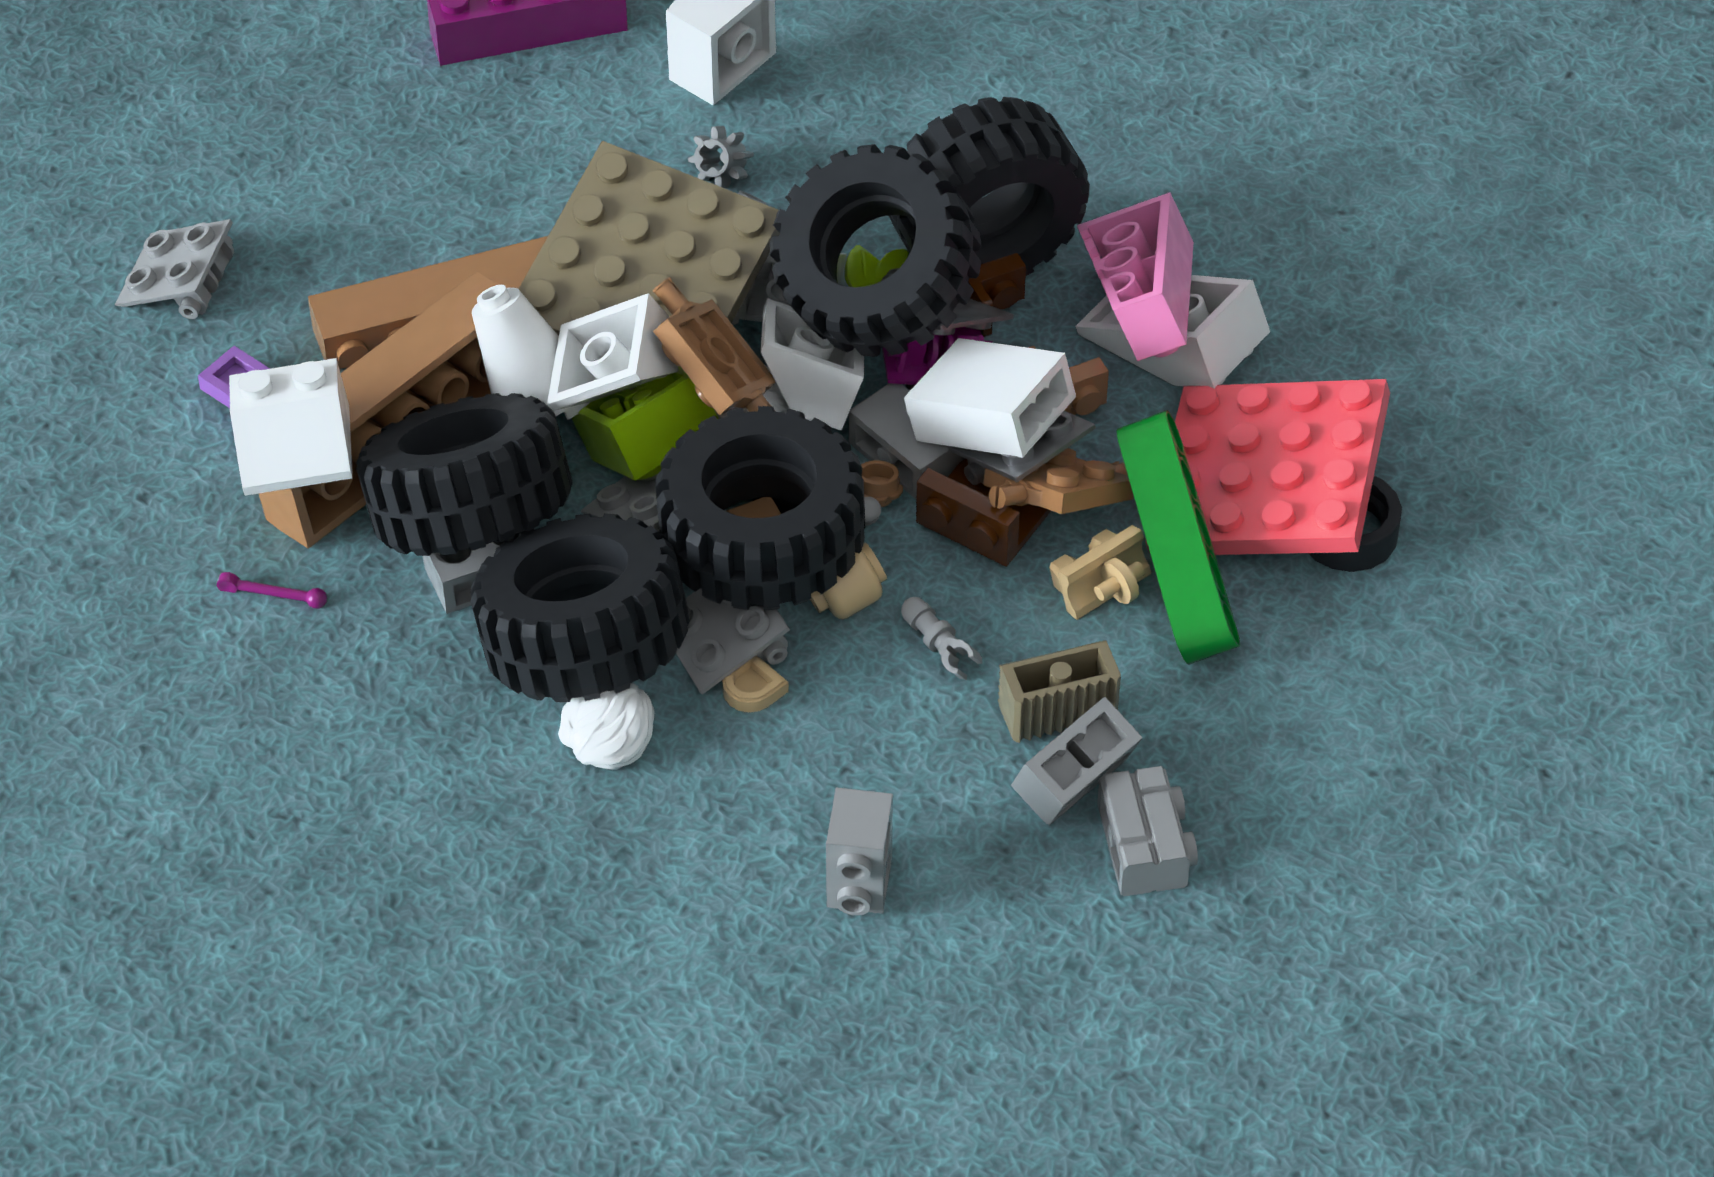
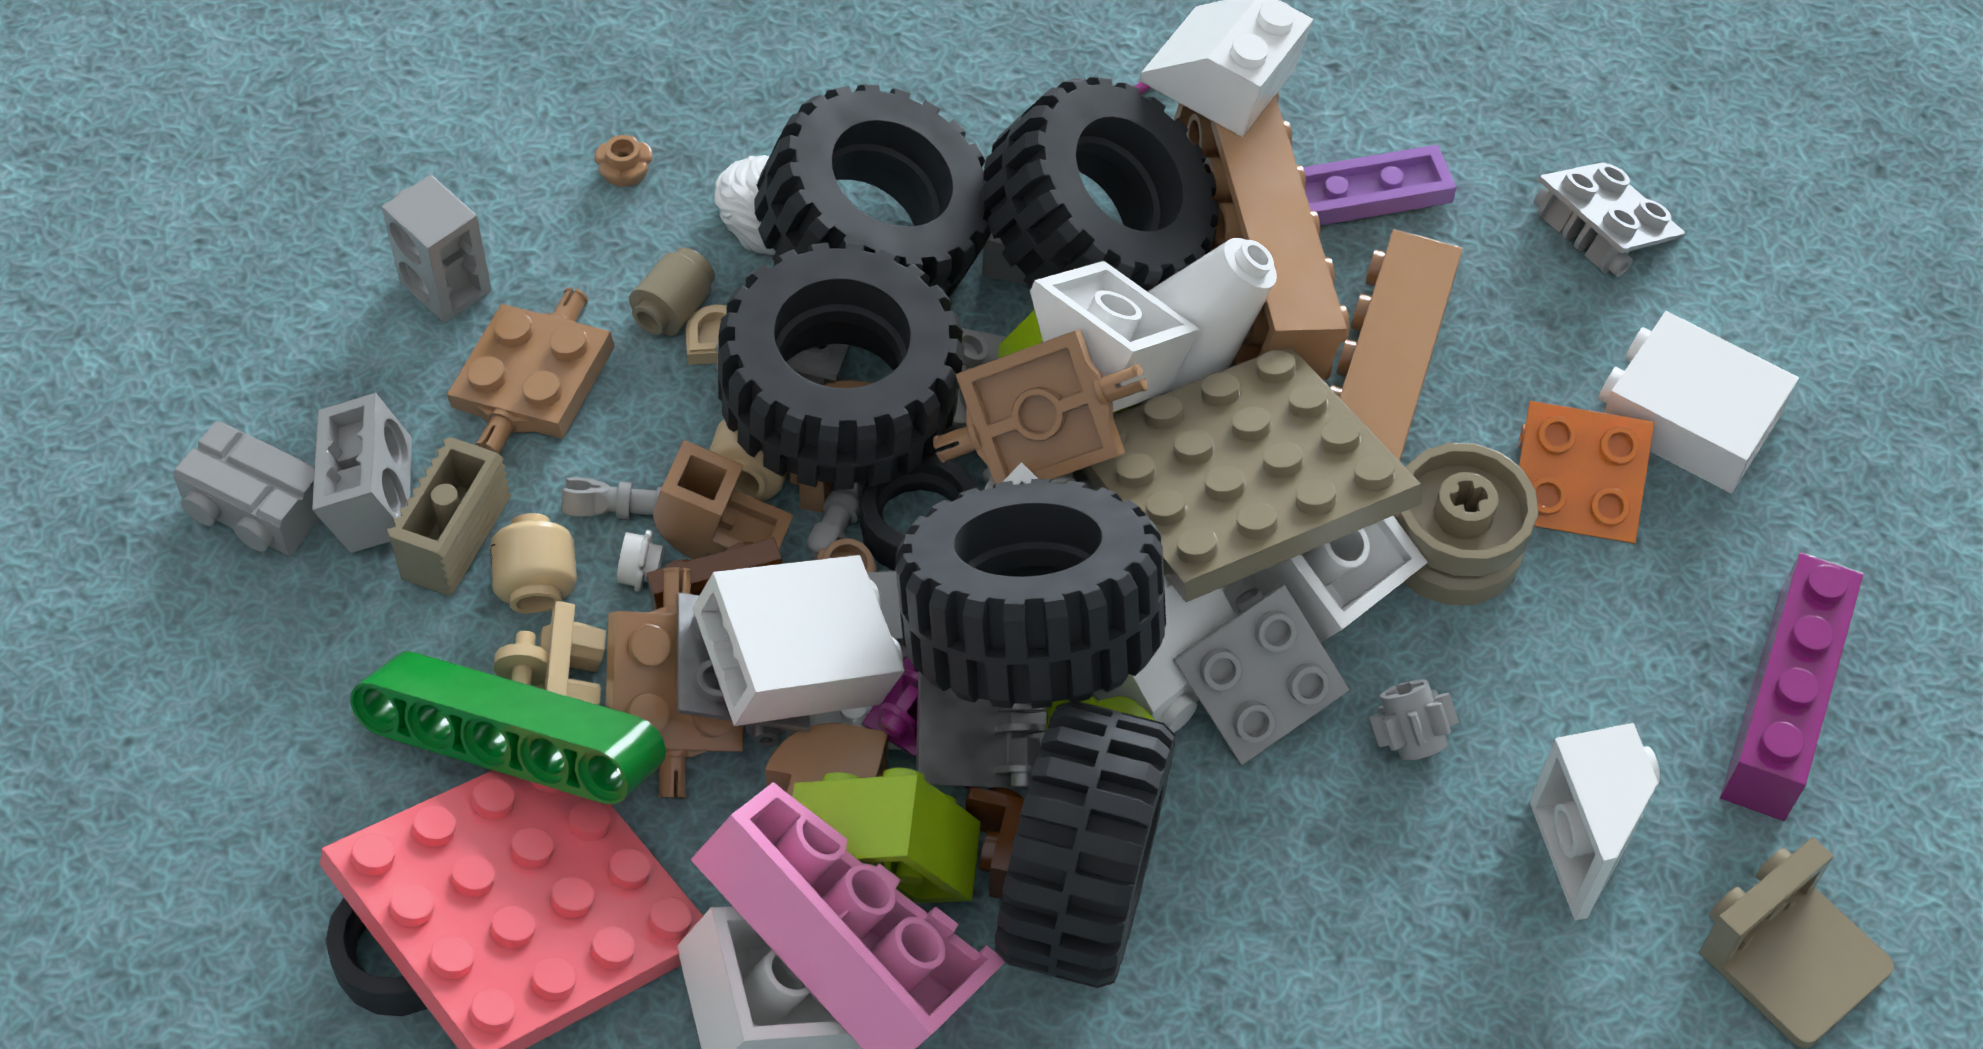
camera: 125 degrees right, 5 degrees up
(326, 145) = (1703, 394): none -> white brick
(437, 177) = (1586, 469): none -> orange hinge
(535, 185) = (1470, 522): none -> dark tan wheel
(646, 858) = (623, 170): none -> medium nougat plate
(746, 719) = (672, 292): none -> dark tan brick
(890, 753) = (531, 371): none -> medium nougat plate
(913, 554) = (704, 512): none -> medium nougat brick
(979, 592) = (638, 558): none -> white plate
(1040, 629) = (532, 563): none -> tan head
(1062, 310) = (903, 827): none -> lime brick

